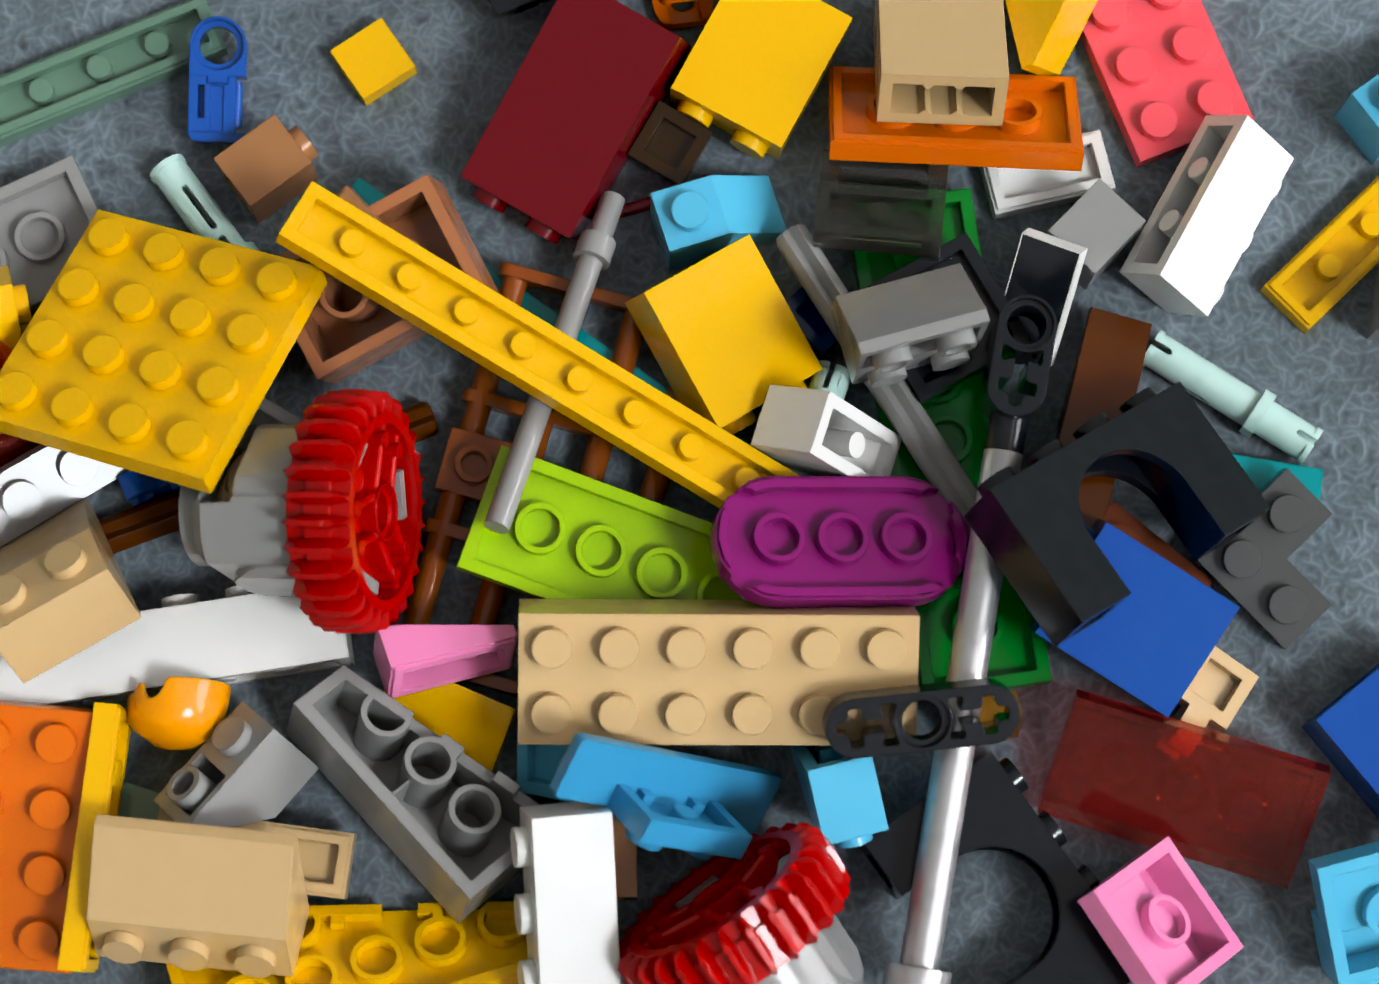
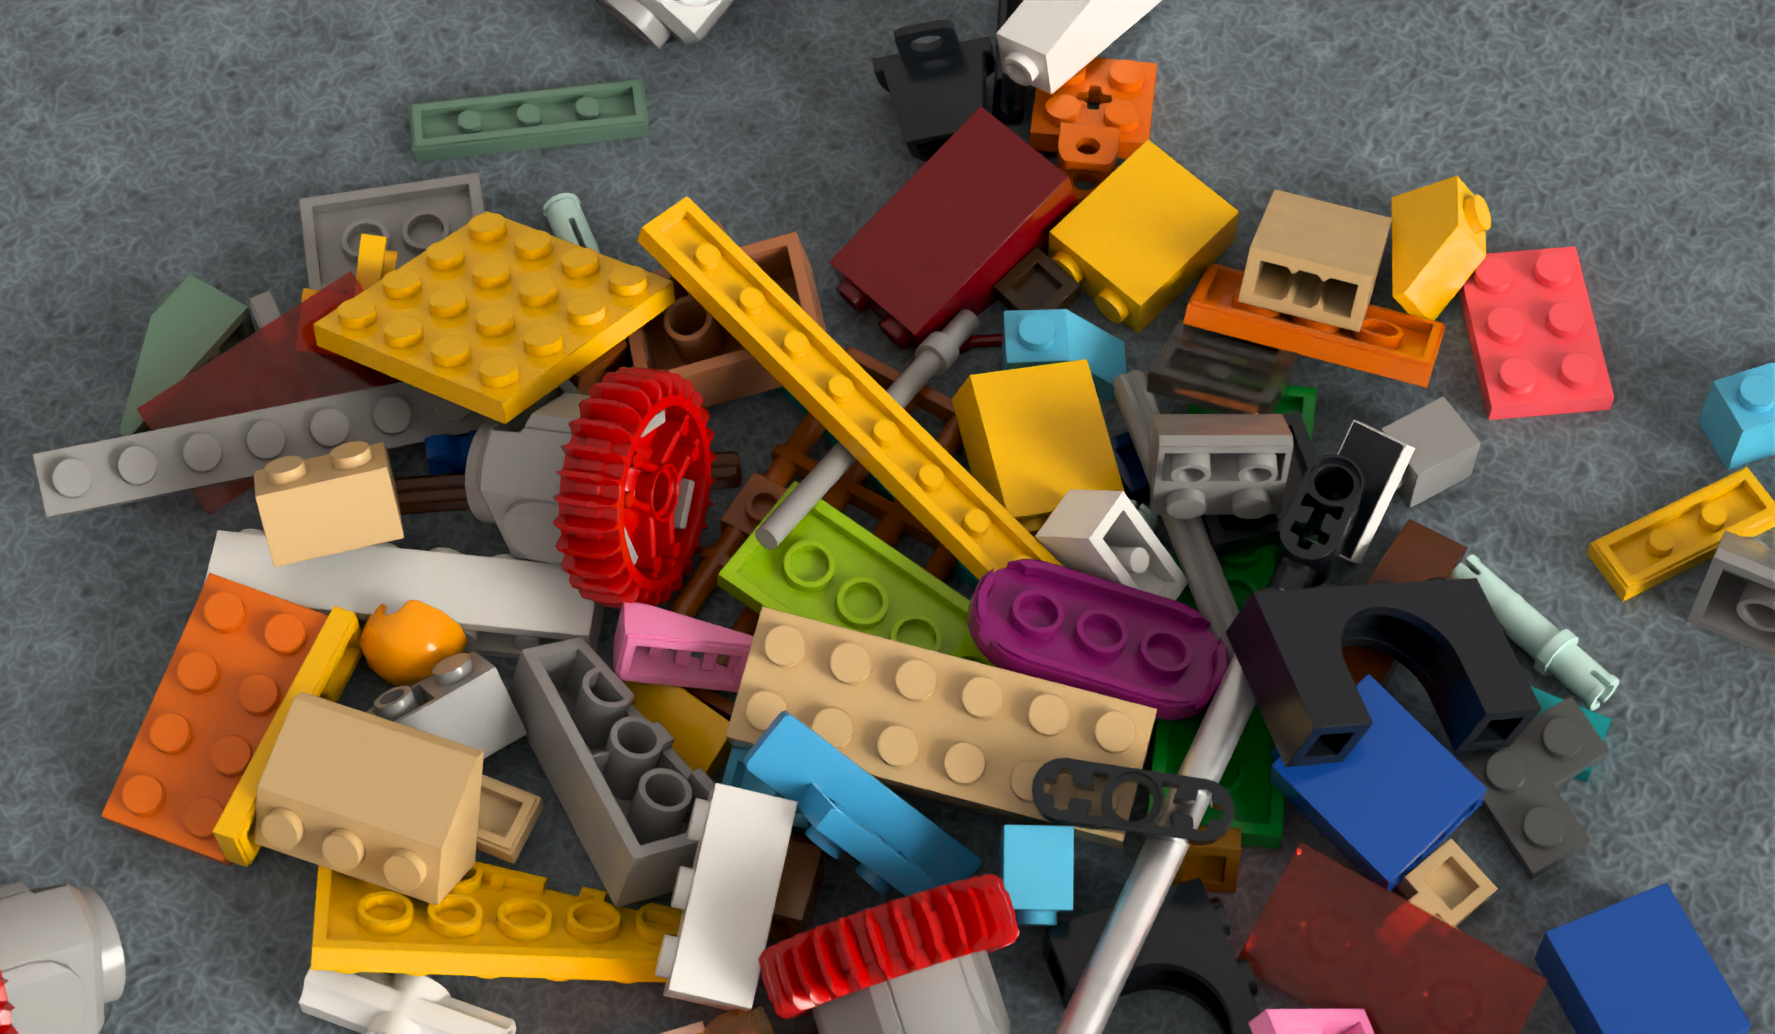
camera: 20 degrees right, 20 degrees down
(214, 88) = (628, 150): blue piece -> none
(268, 167) = (636, 207): medium nougat brick -> none
(373, 61) = (780, 167): yellow tile -> none
(1026, 190) = (1384, 400): white tile -> none
(1207, 214) = (1546, 462): white brick -> none

